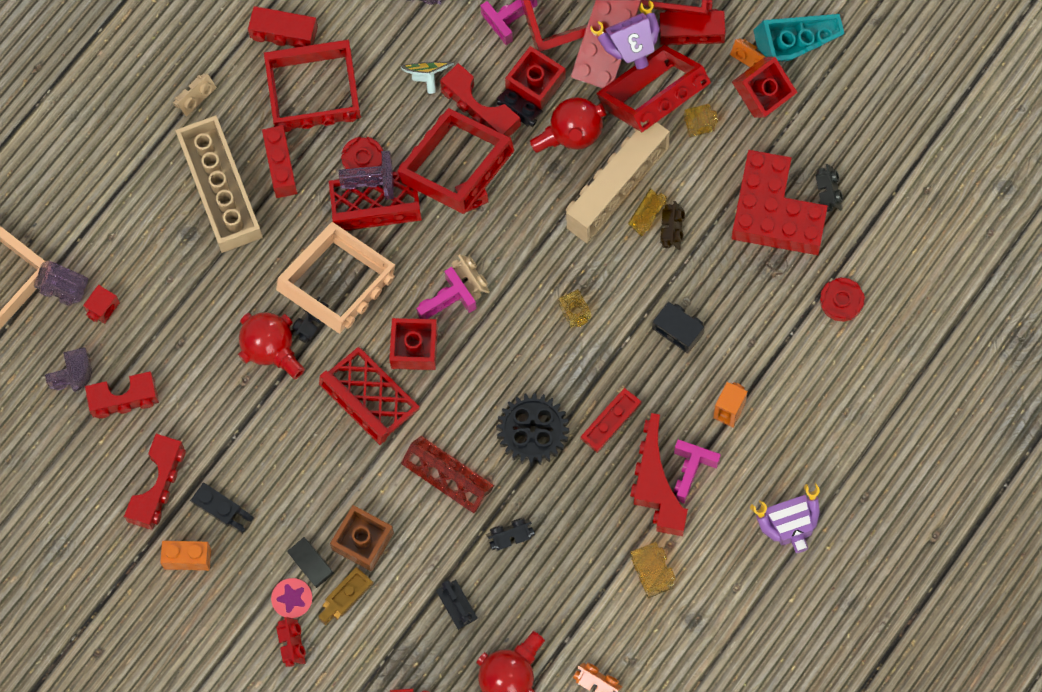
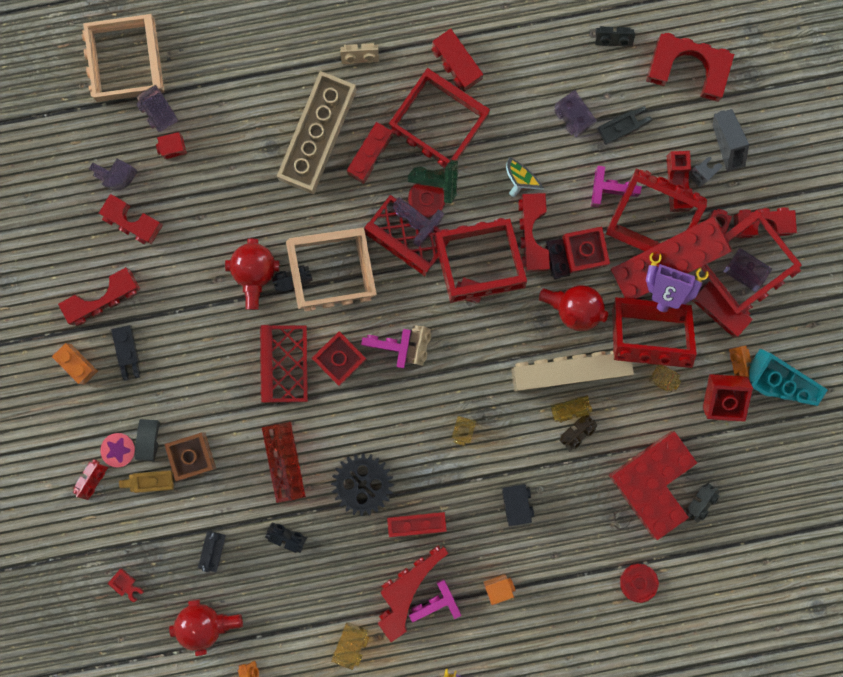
camera: 40 degrees right, 15 degrees up
(357, 130) = (438, 178): none -> clear green bracket

